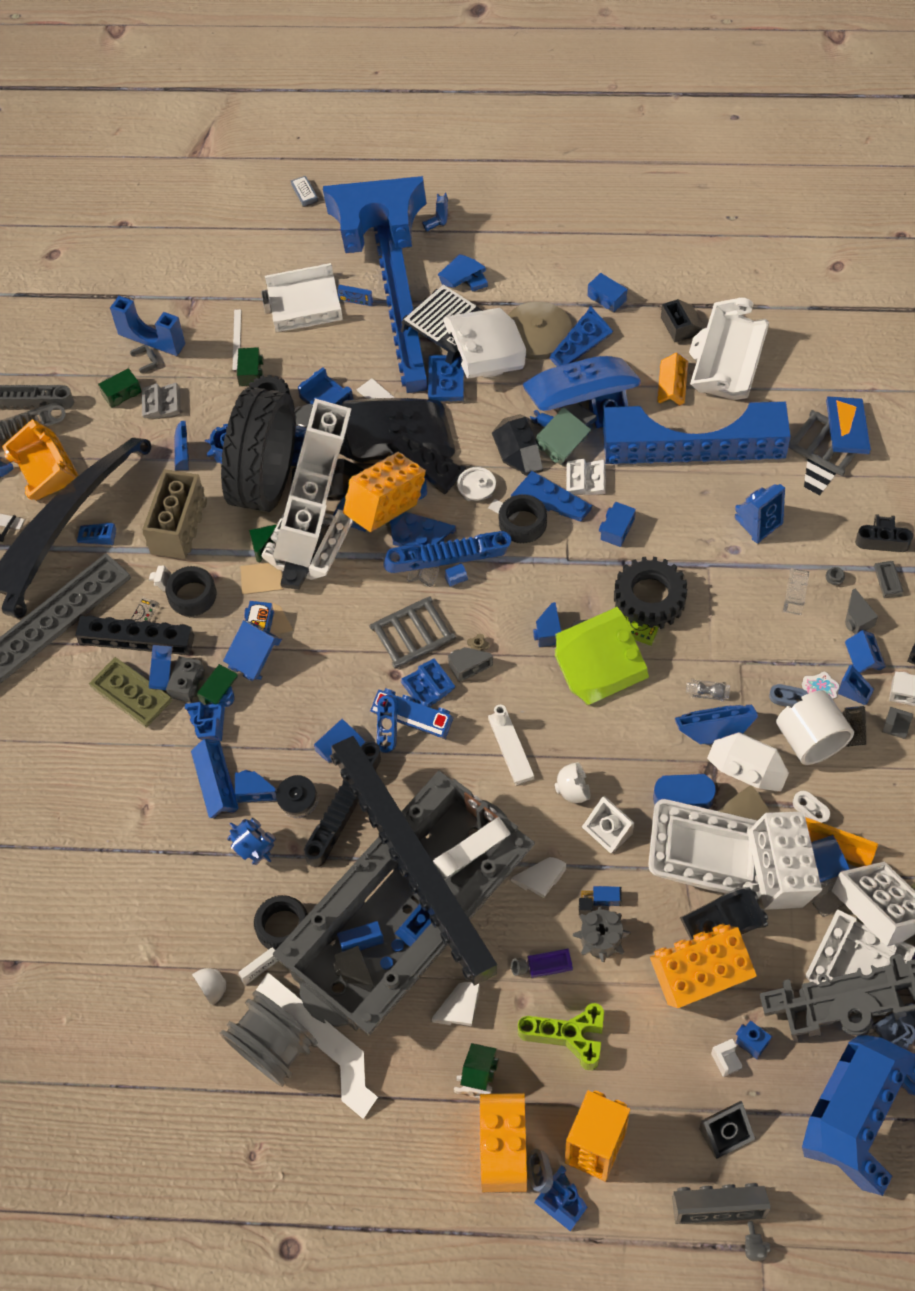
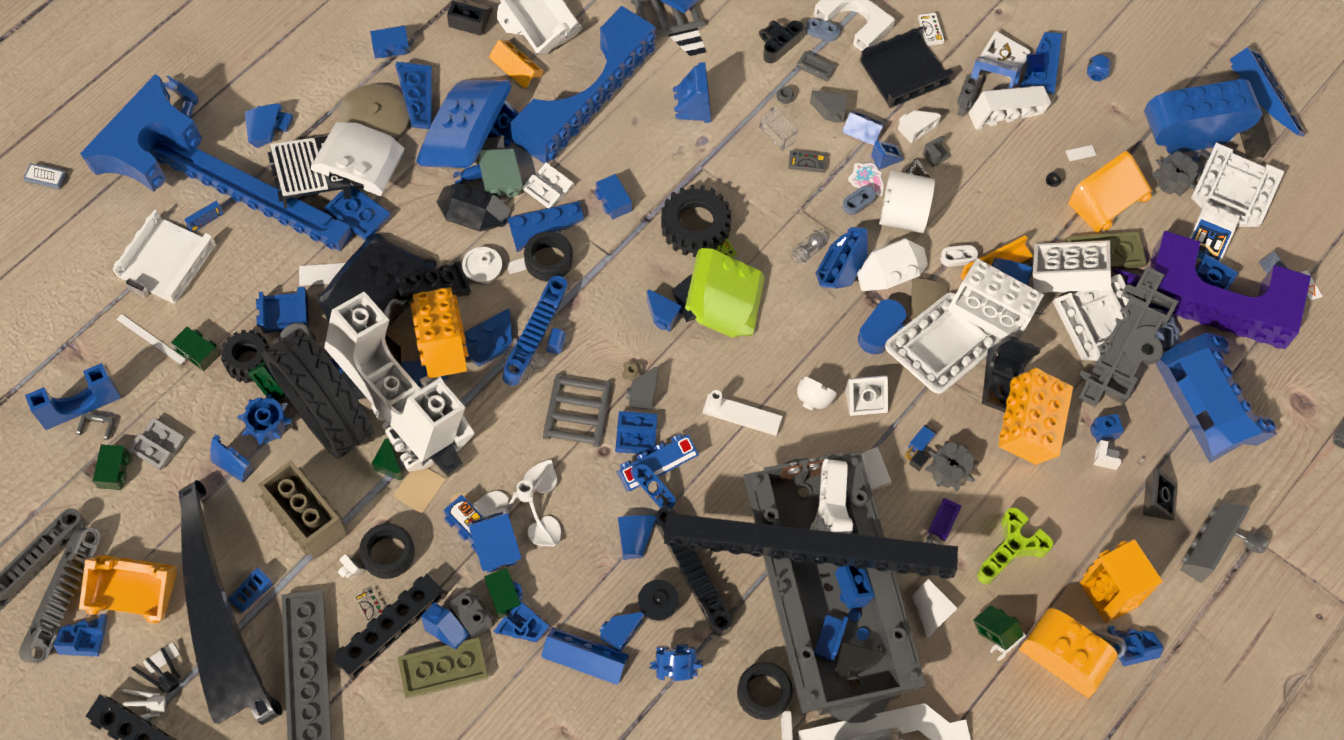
camera: 60 degrees left, 5 degrees up
(332, 647) = (540, 478): none -> white plant
(788, 634) = (807, 161): none -> dark grey tile

